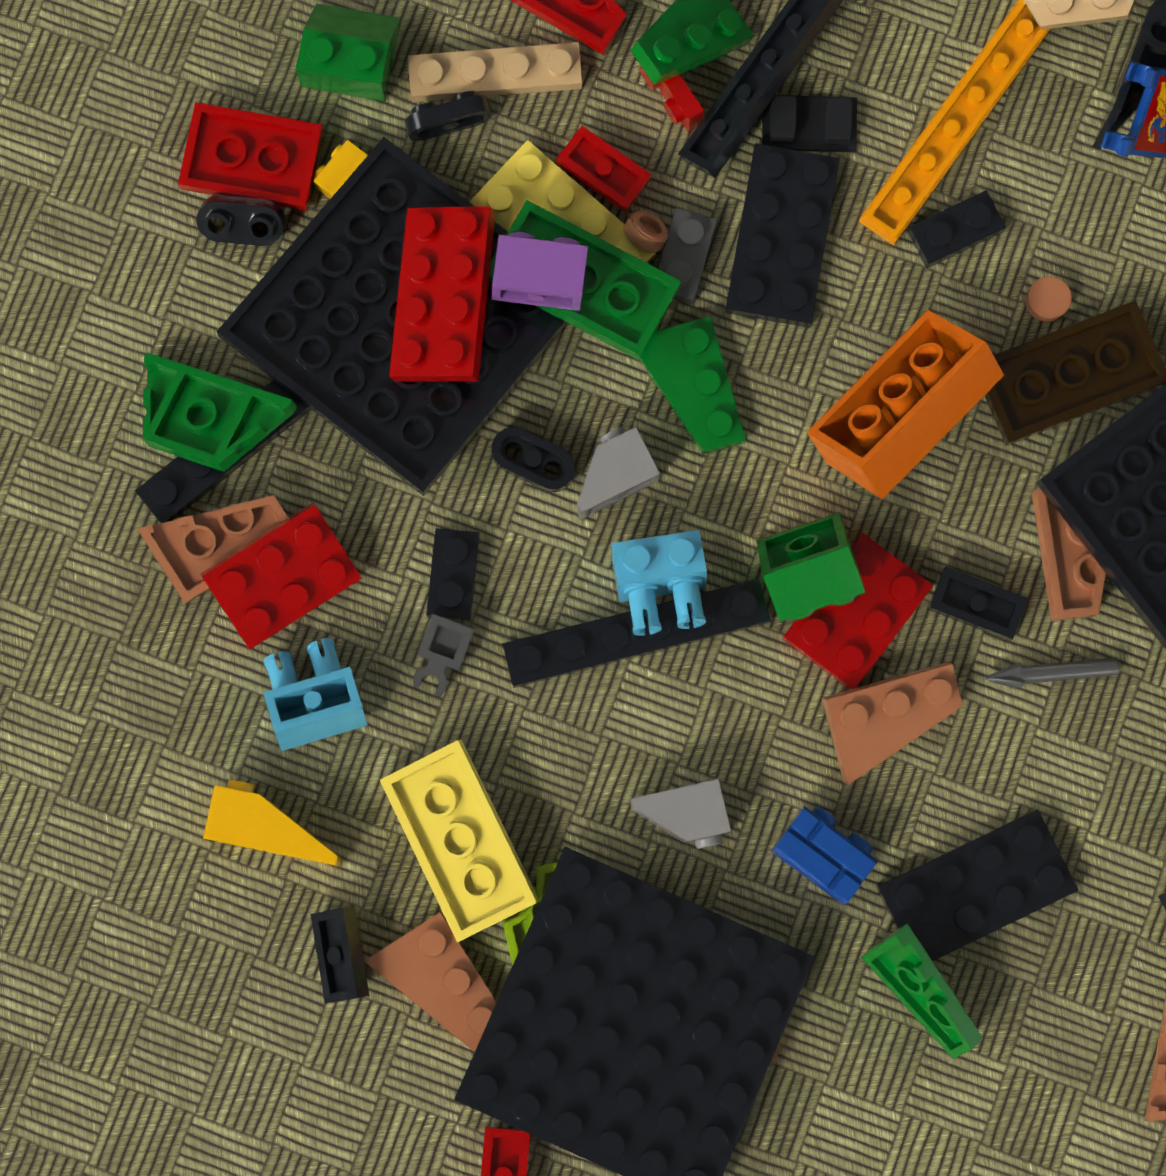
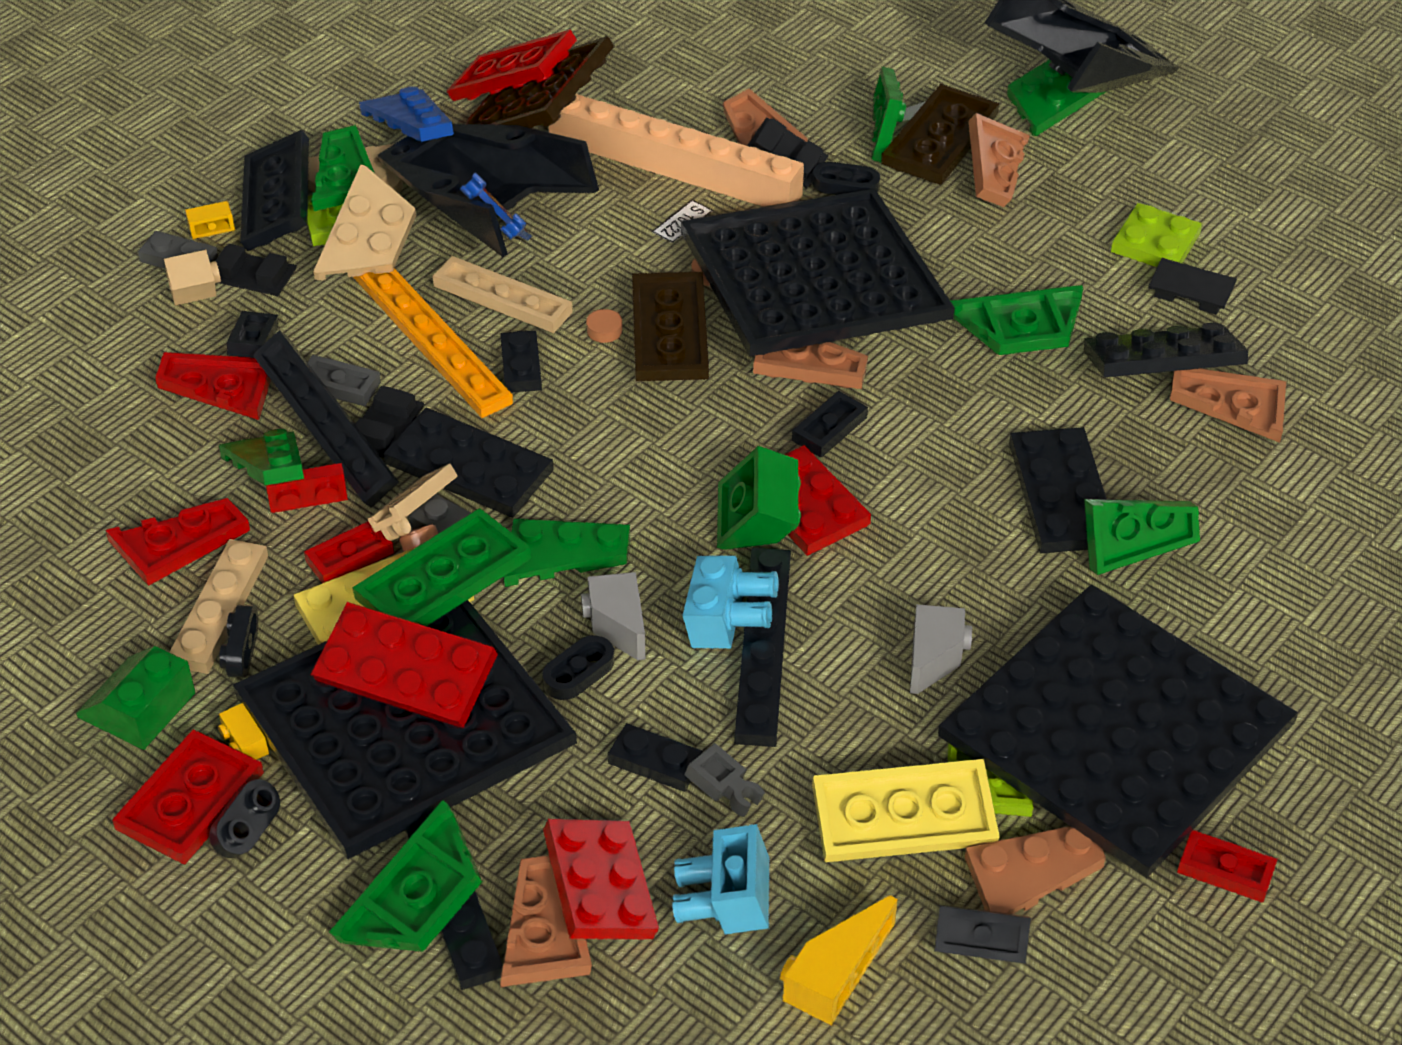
camera: 70 degrees left, 35 degrees down
(539, 271) = (425, 580): medium lavender brick -> none
(684, 204) = (392, 517): none -> tan hinge
(824, 854) = (1004, 566): blue brick -> none
(847, 50) = (345, 380): none -> dark grey plate
(887, 715) = (901, 502): nougat wing -> none
(905, 403) = (652, 408): orange brick -> none
(1017, 676) = (899, 412): dark grey piece -> none
(1051, 166) = (503, 294): none -> tan plate

